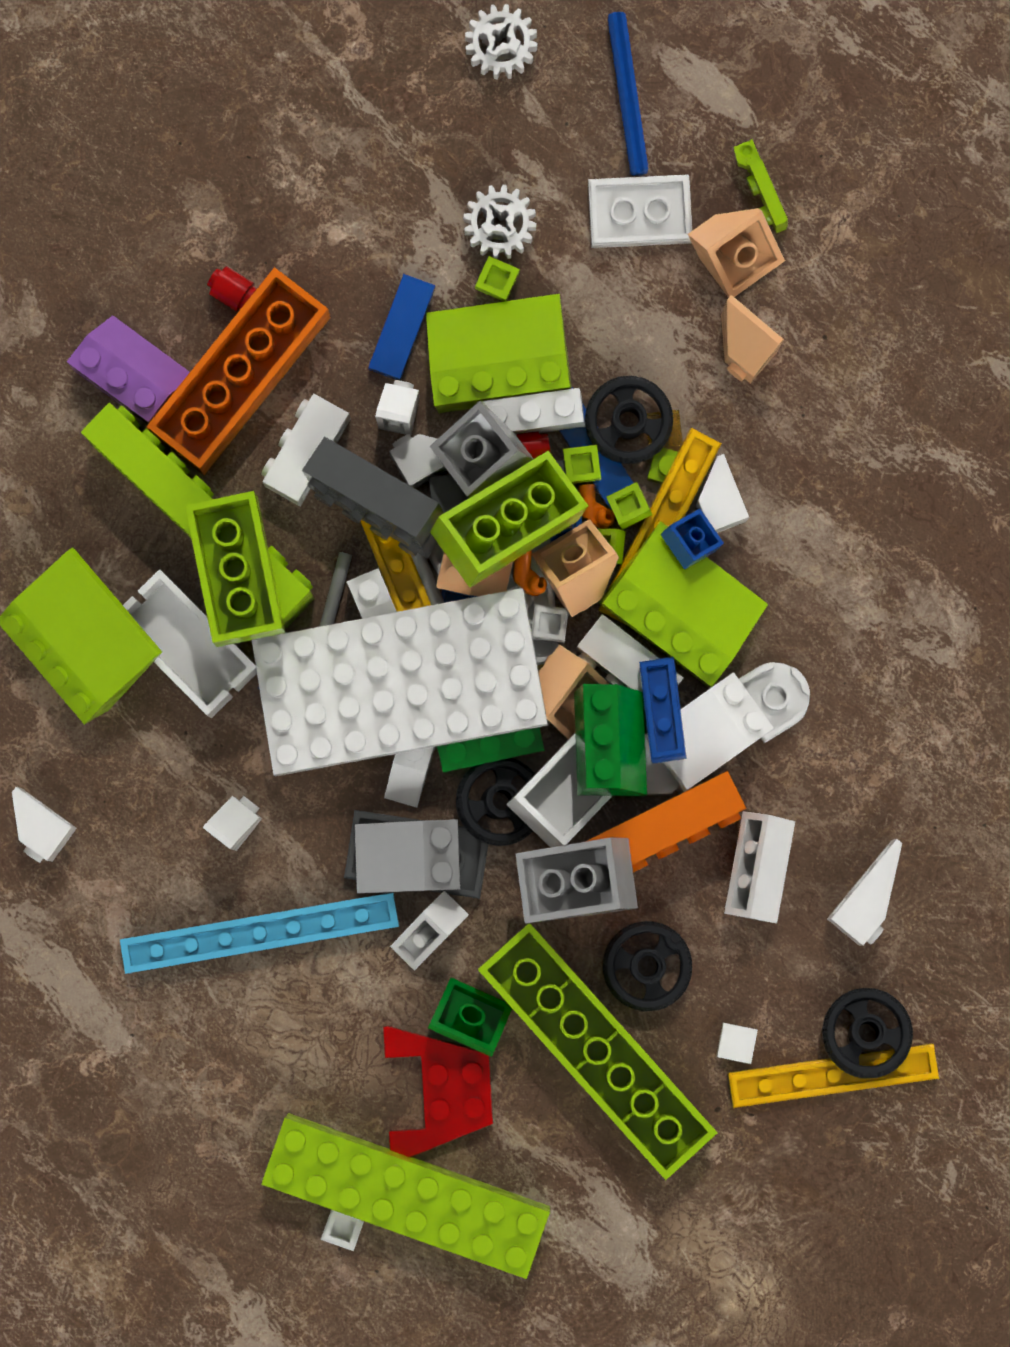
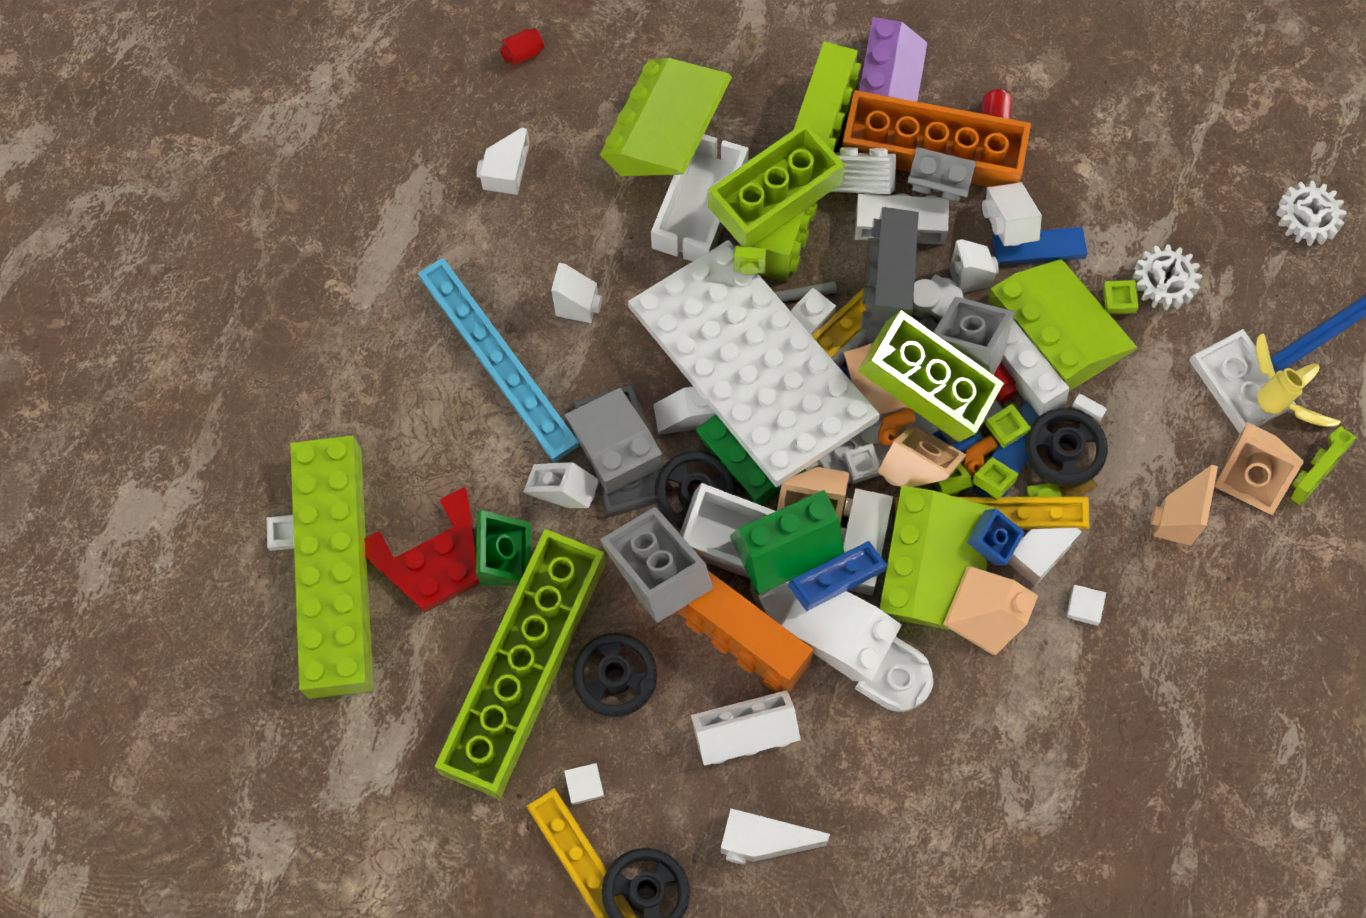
camera: 70 degrees right, 15 degrees down
(241, 462) = (867, 172): none -> white brick
(288, 389) = (941, 173): none -> light grey bracket
(297, 633) = (749, 260): none -> lime plate
(361, 339) = (1012, 214): none -> white brick
(412, 472) = (926, 295): none -> white tile
(600, 376) = (1089, 407): none -> white tile
(676, 178) = (1286, 387): none -> light yellow plant
(755, 581) = (989, 609): none -> light nougat slope
(788, 485) = (1086, 605): none -> white tile

